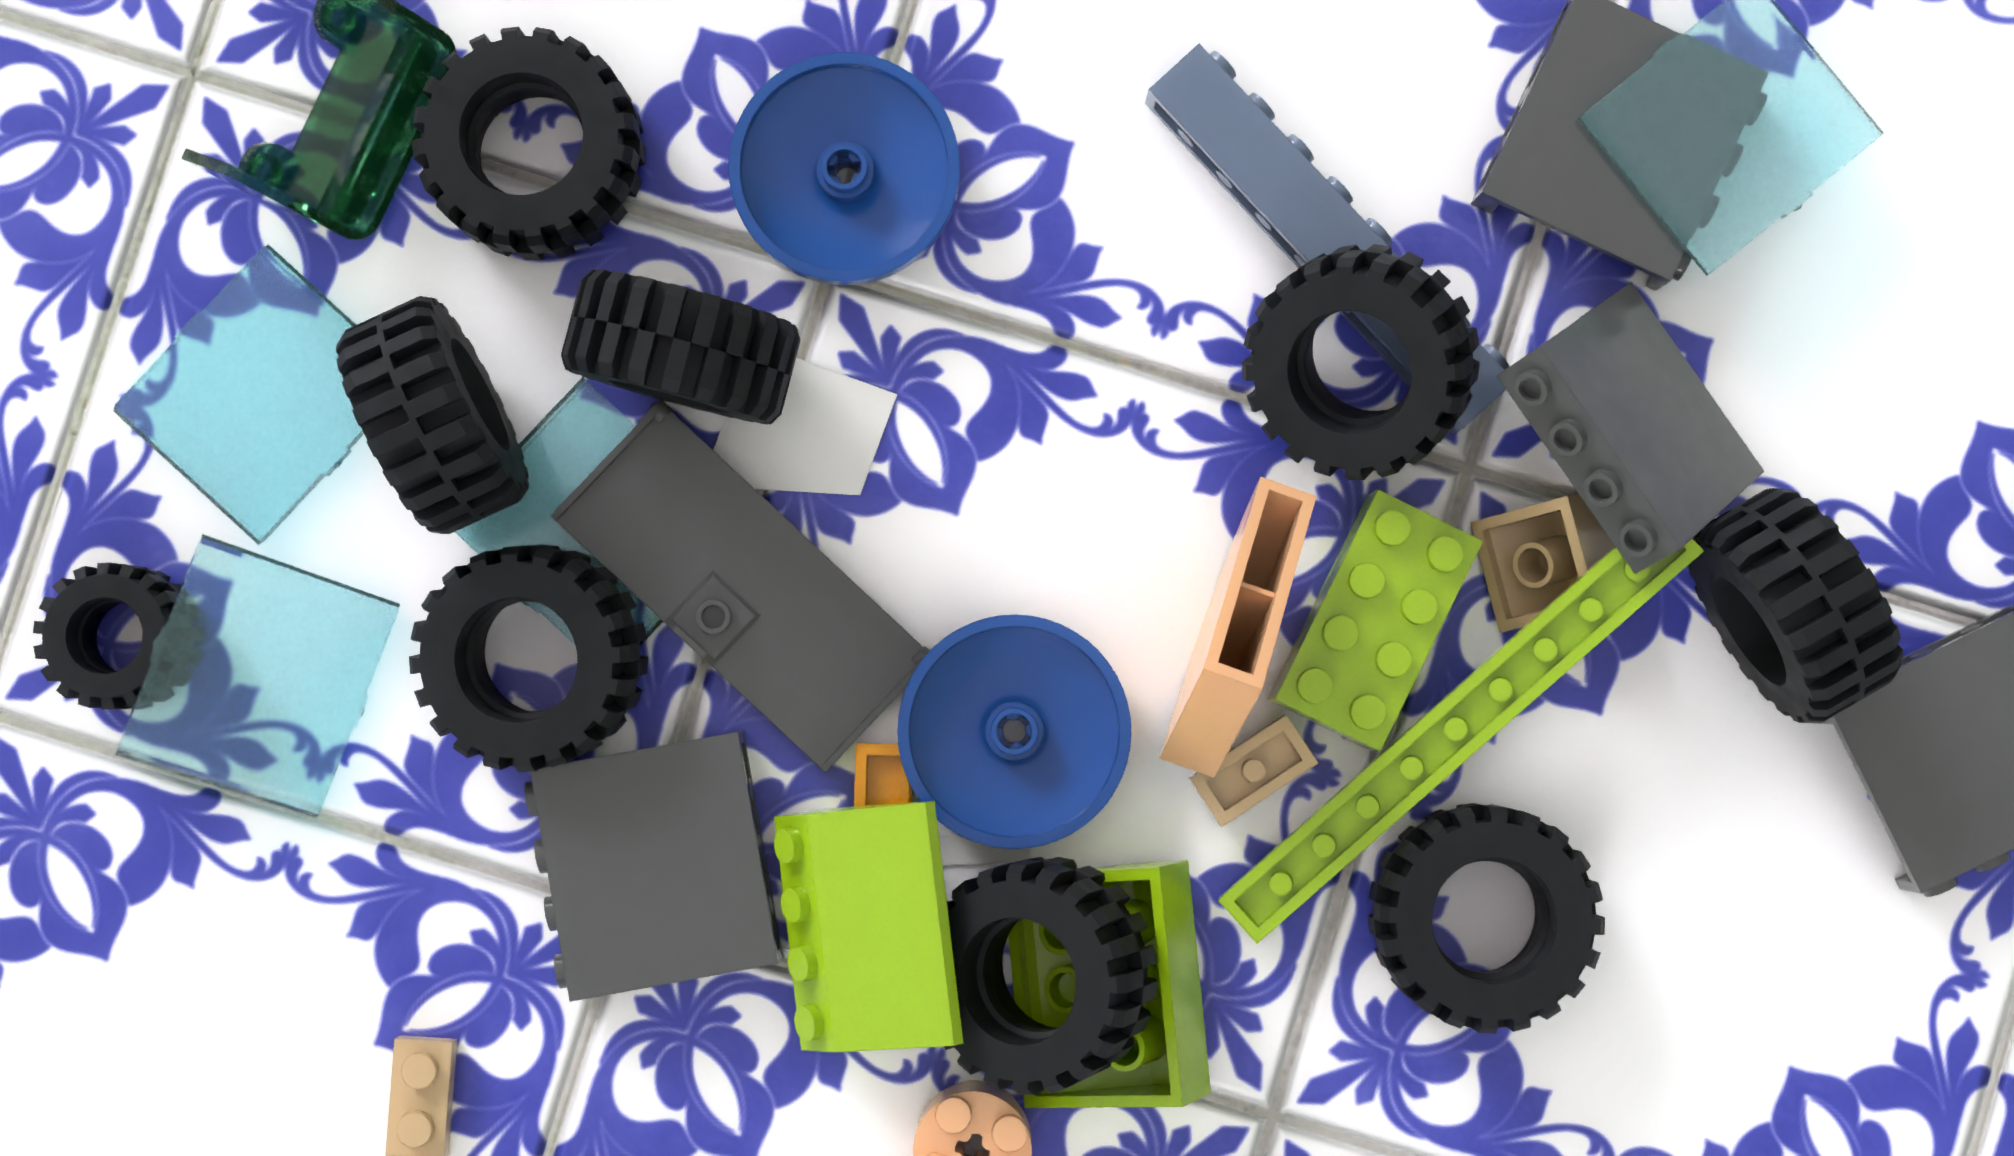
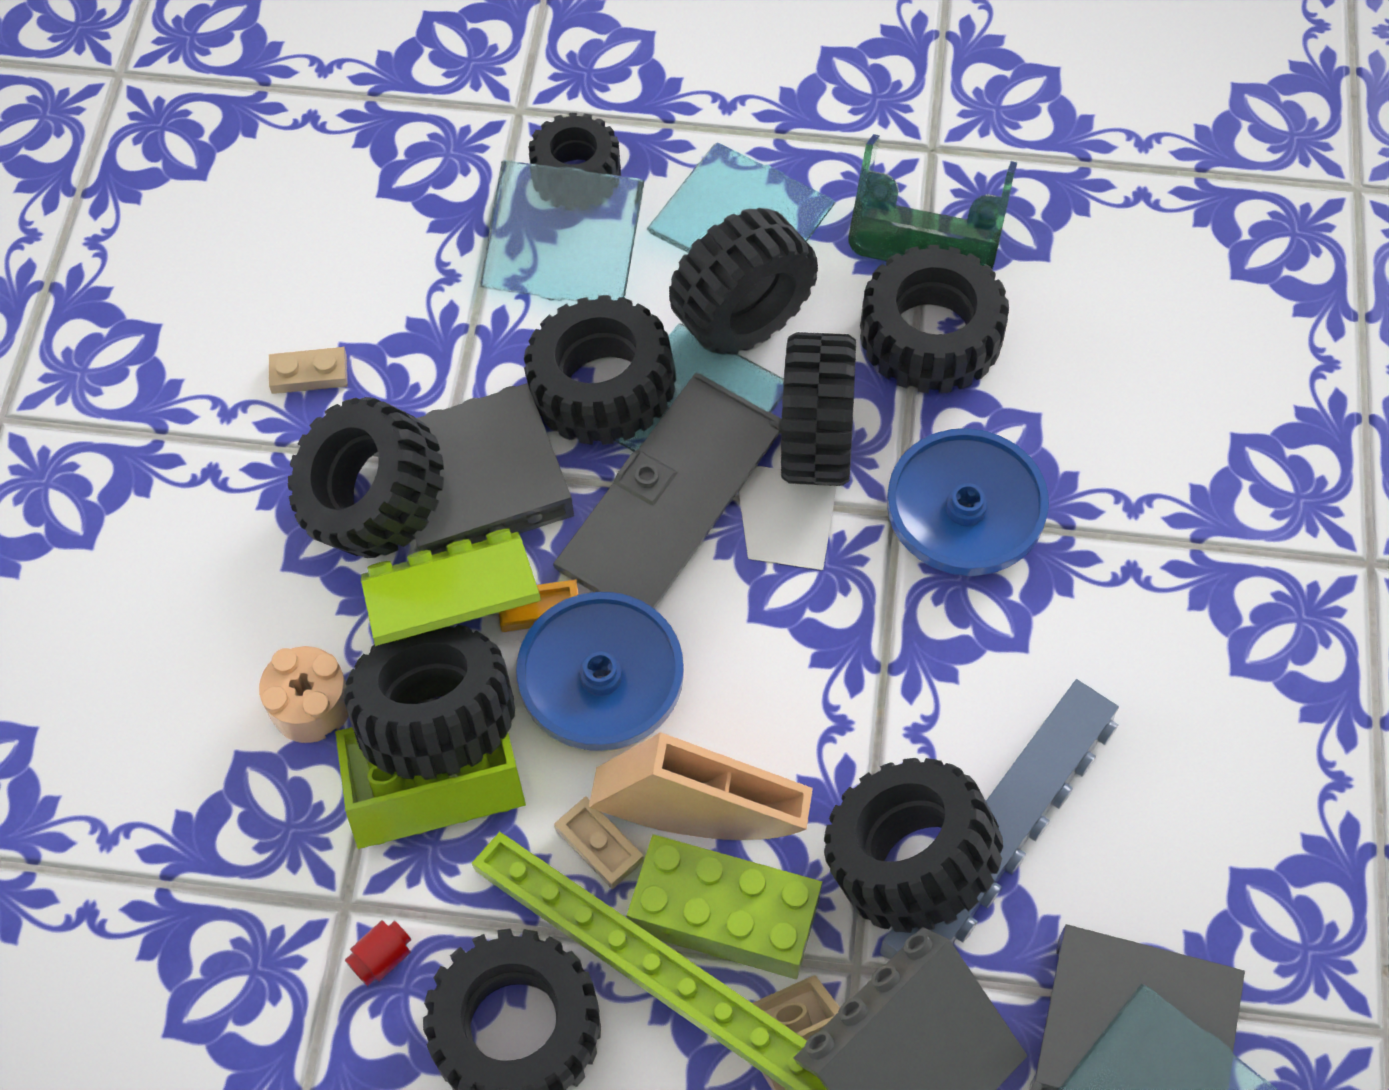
camera: 85 degrees right, 25 degrees down
(664, 1090) = (330, 464): none -> black tyre
(1355, 1079) = (378, 952): none -> red brick

